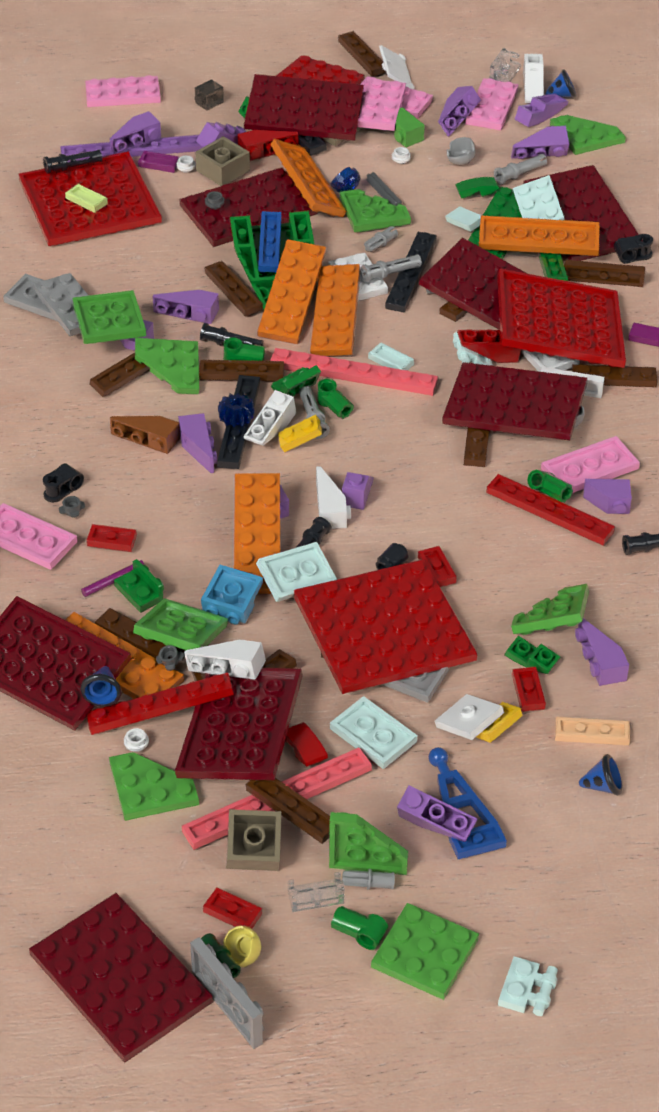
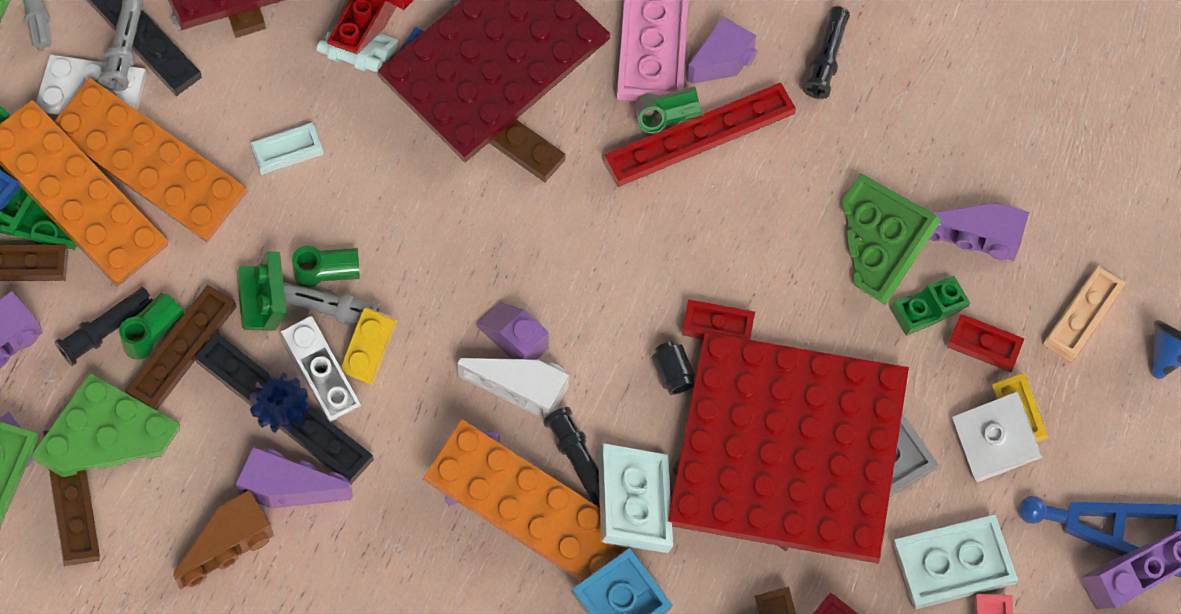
camera: 60 degrees left, 20 degrees up
(358, 372) = (278, 209): coral plate -> none

